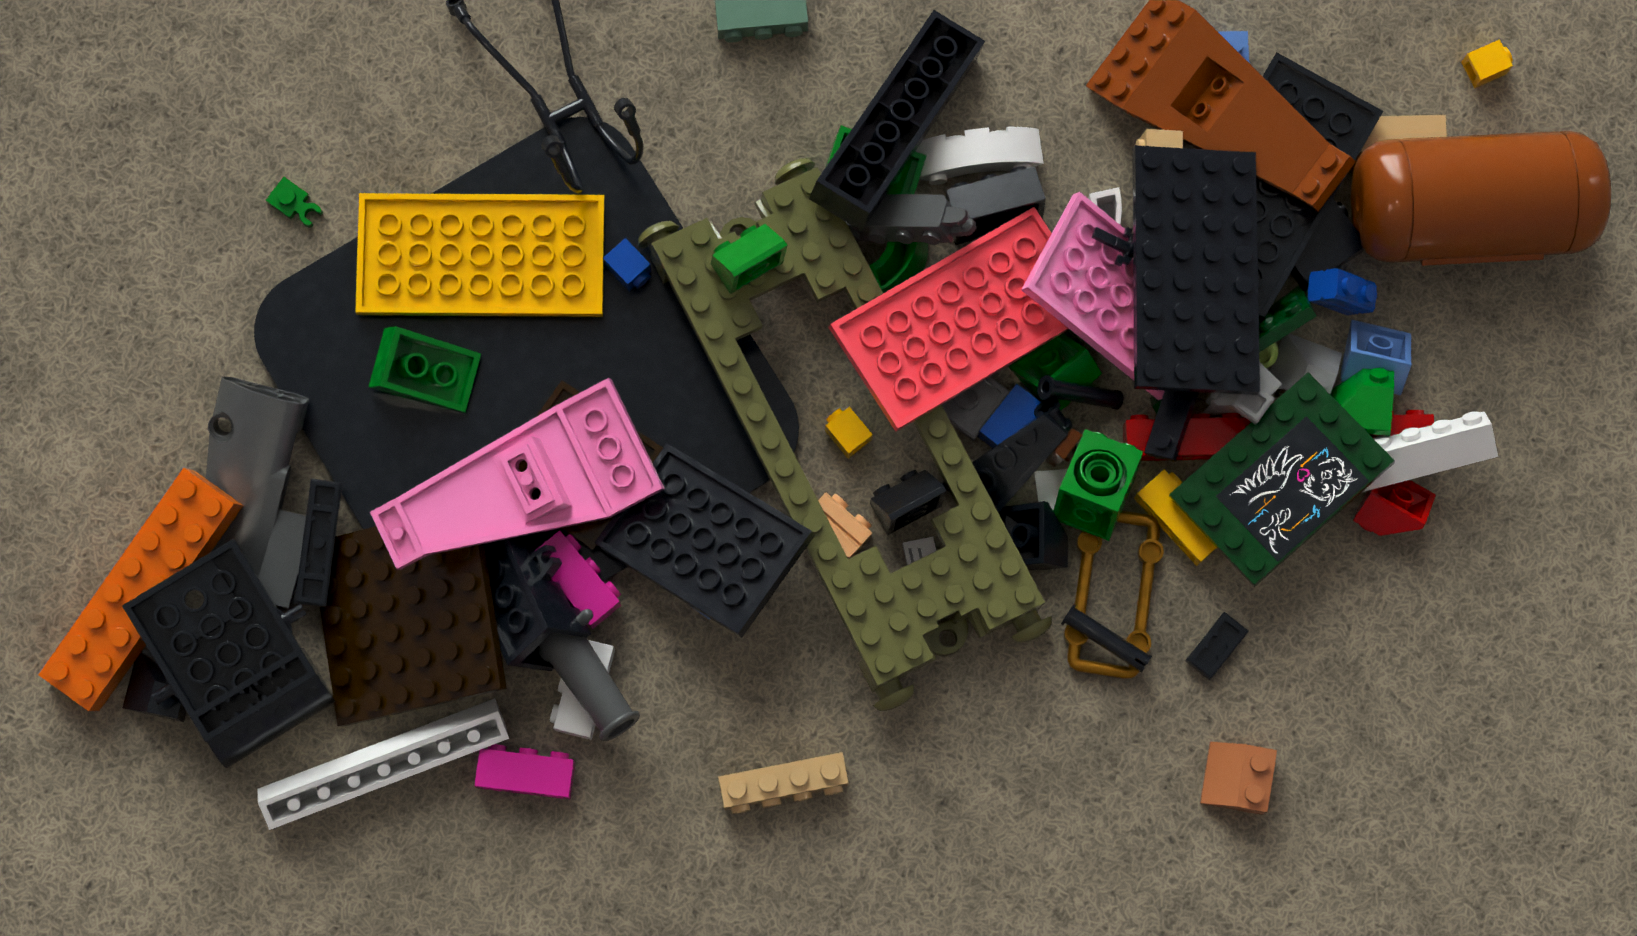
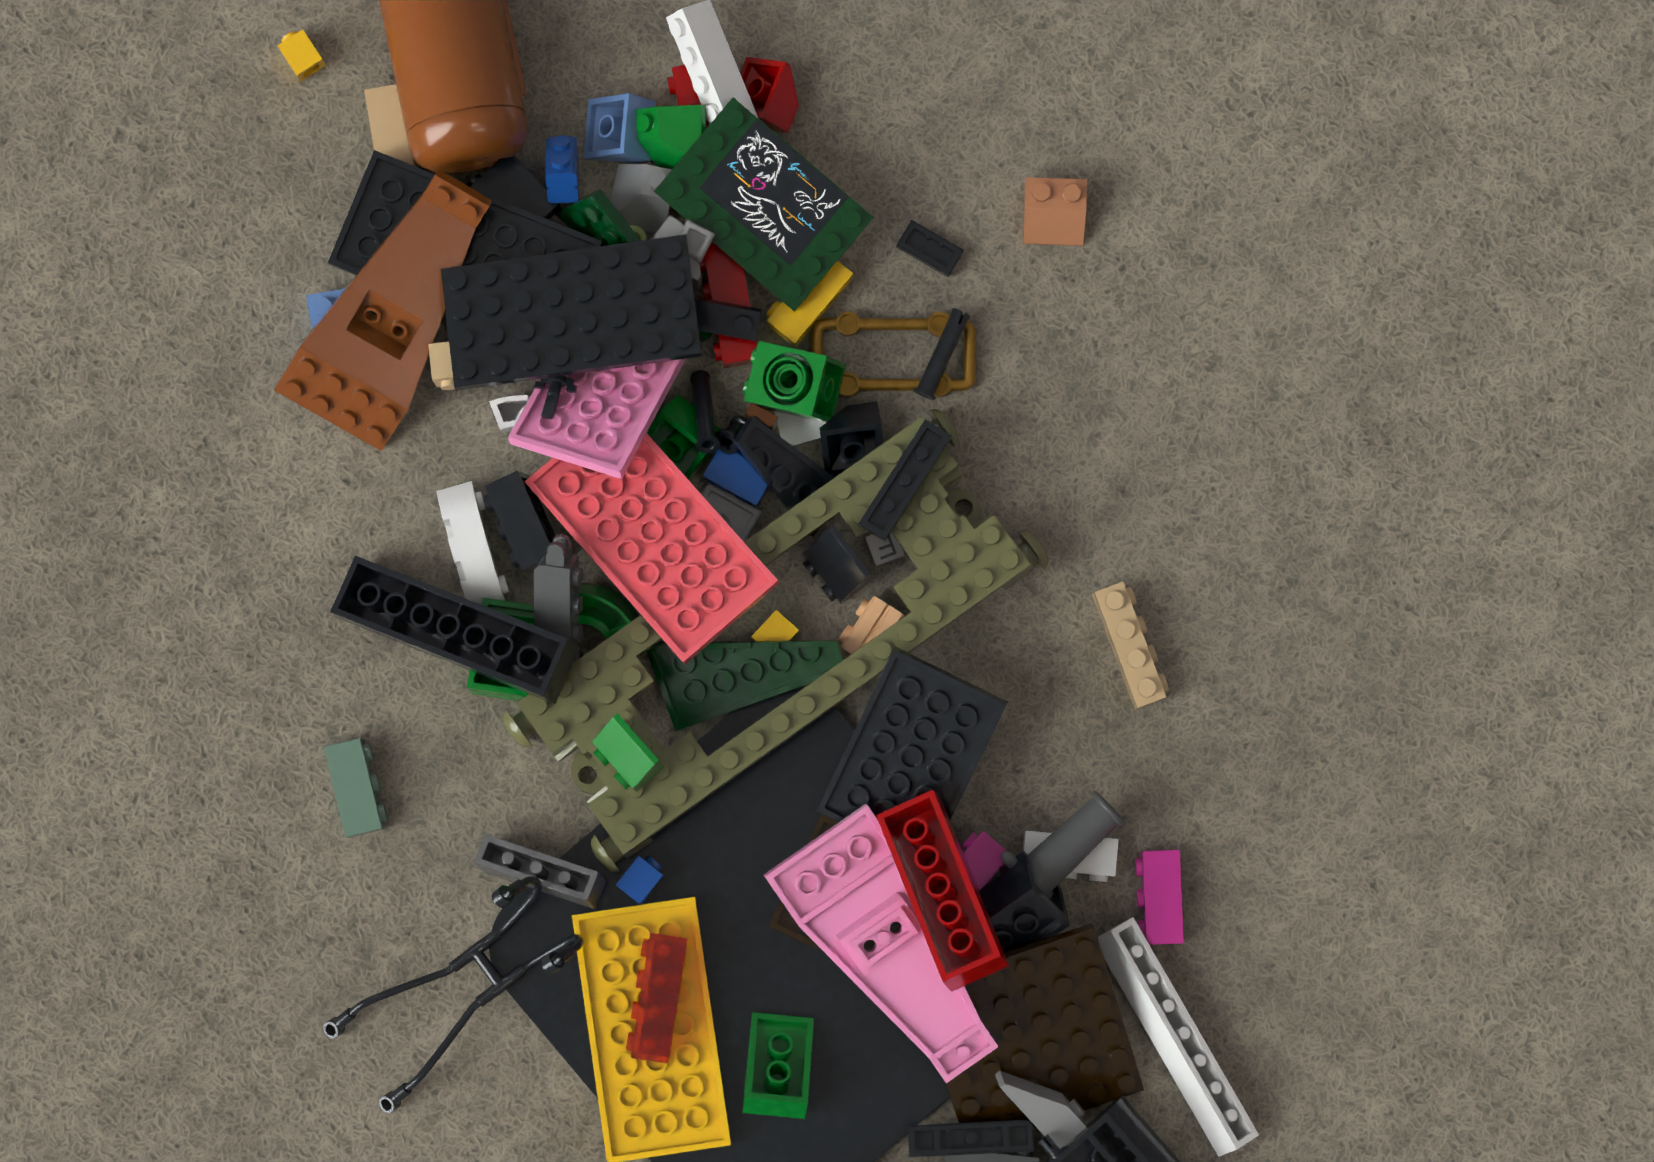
camera: 95 degrees left, 5 degrees up
(334, 618) = (1044, 1108): none -> light grey slope
(508, 260) = (659, 997): none -> clear red brick
(561, 540) = (942, 890): none -> red brick
(650, 170) = (556, 875): none -> flat silver brick
(813, 389) = (736, 675): none -> dark green wing
(980, 571) = (905, 480): none -> black plate

